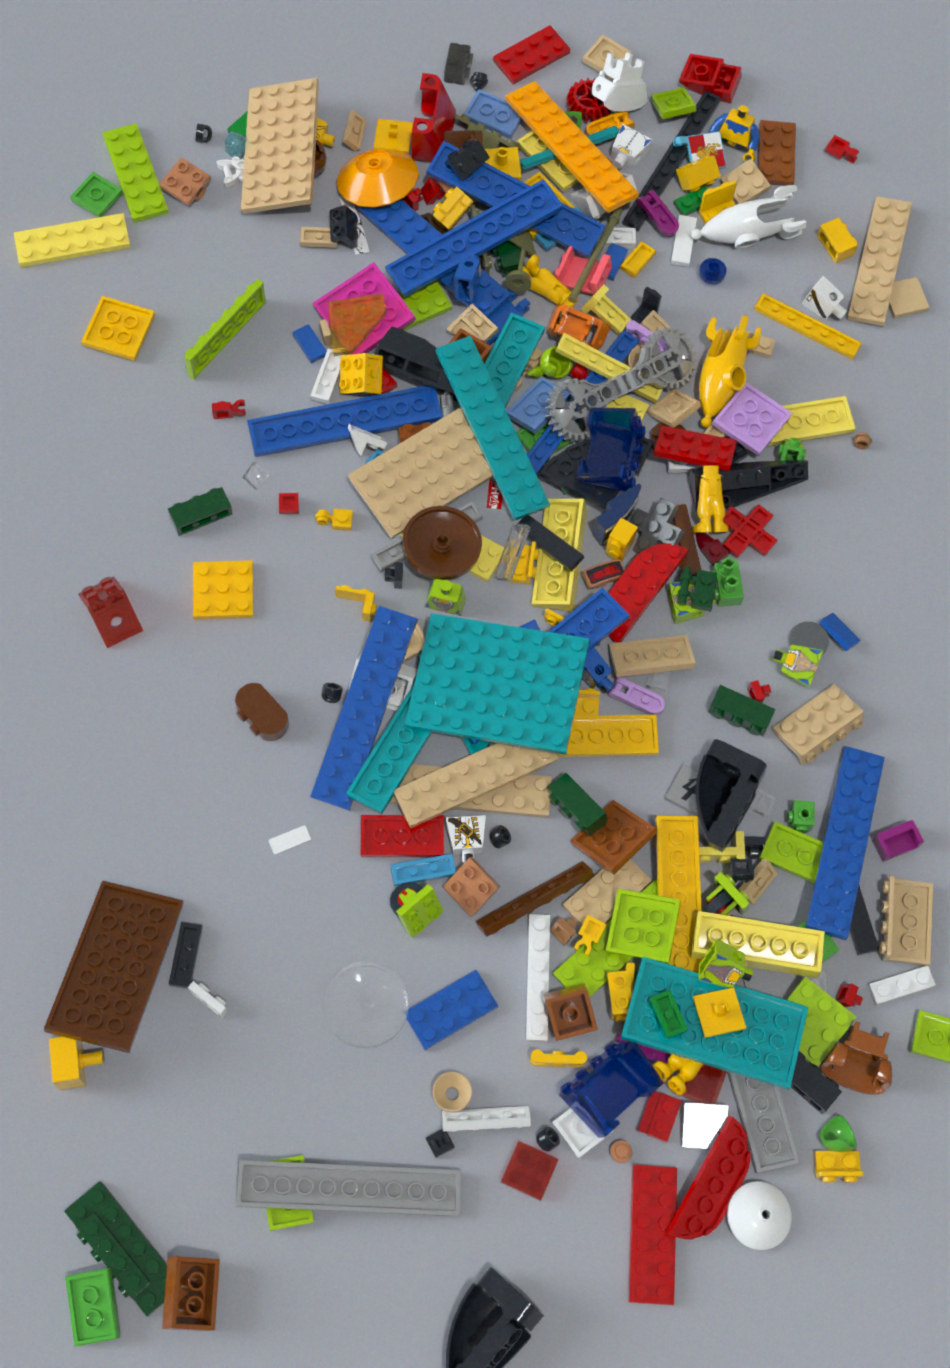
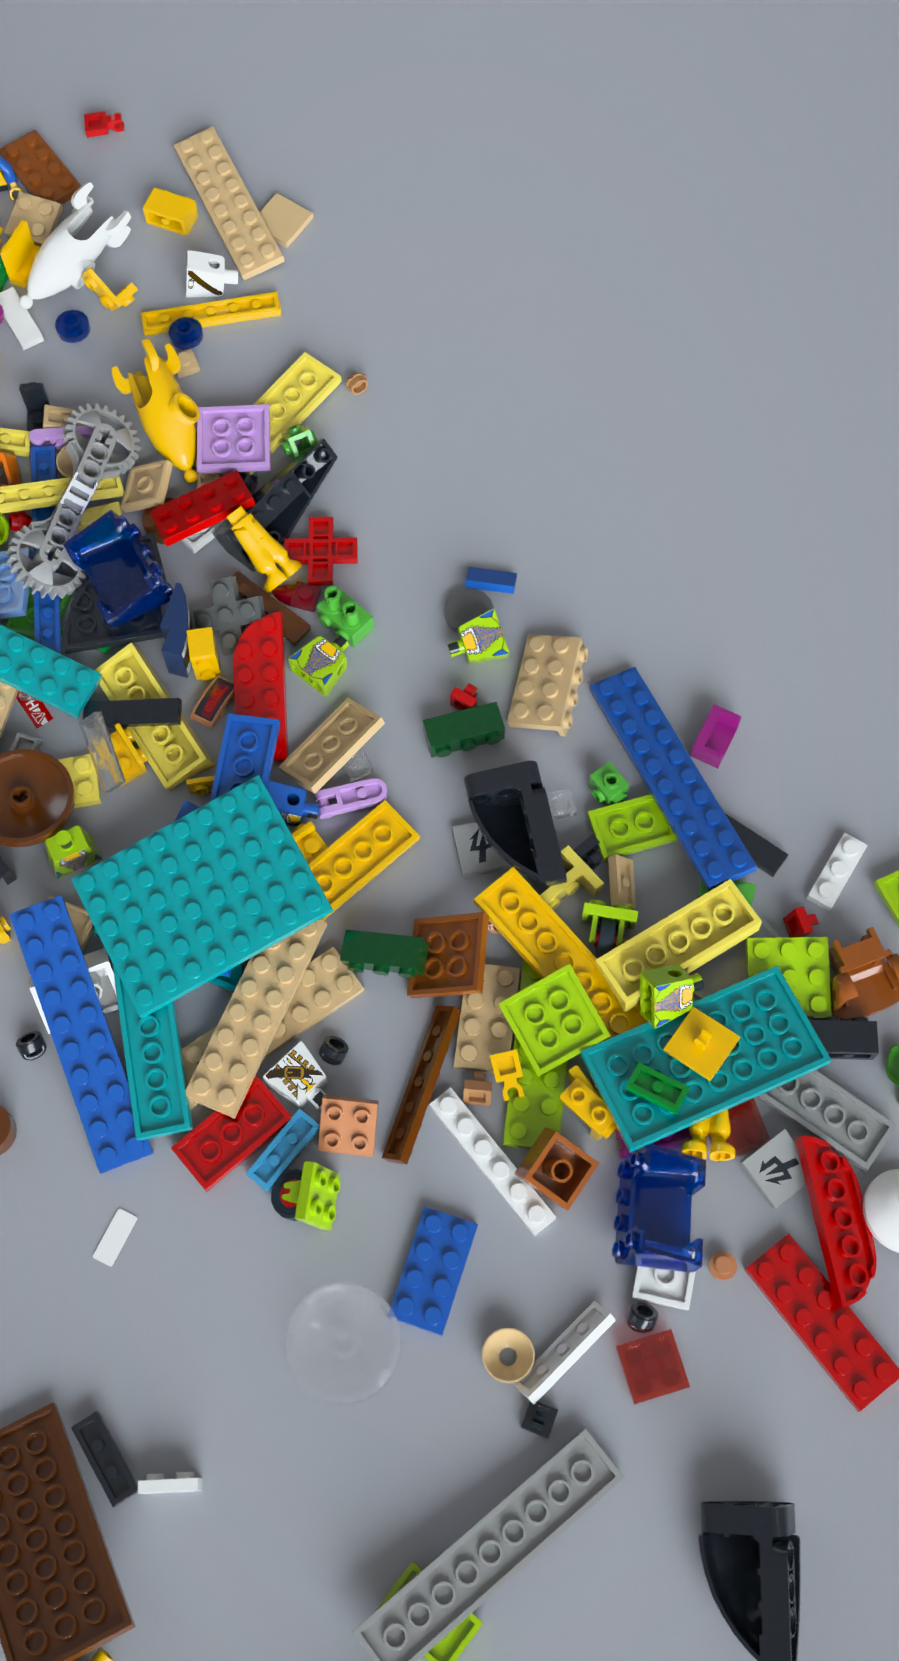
camera: 35 degrees left, 0 degrees up
(558, 1059) = (583, 1226): yellow plate -> none
(659, 1116) = (728, 1197): red plate -> none
(703, 592) = (328, 639): dark green plate -> none
(742, 870) = (600, 884): black tile -> none
(748, 268) = (107, 298): none -> yellow bracket
(779, 328) = (185, 333): none -> clear blue plate
(906, 921) = (790, 806): tan bracket -> none

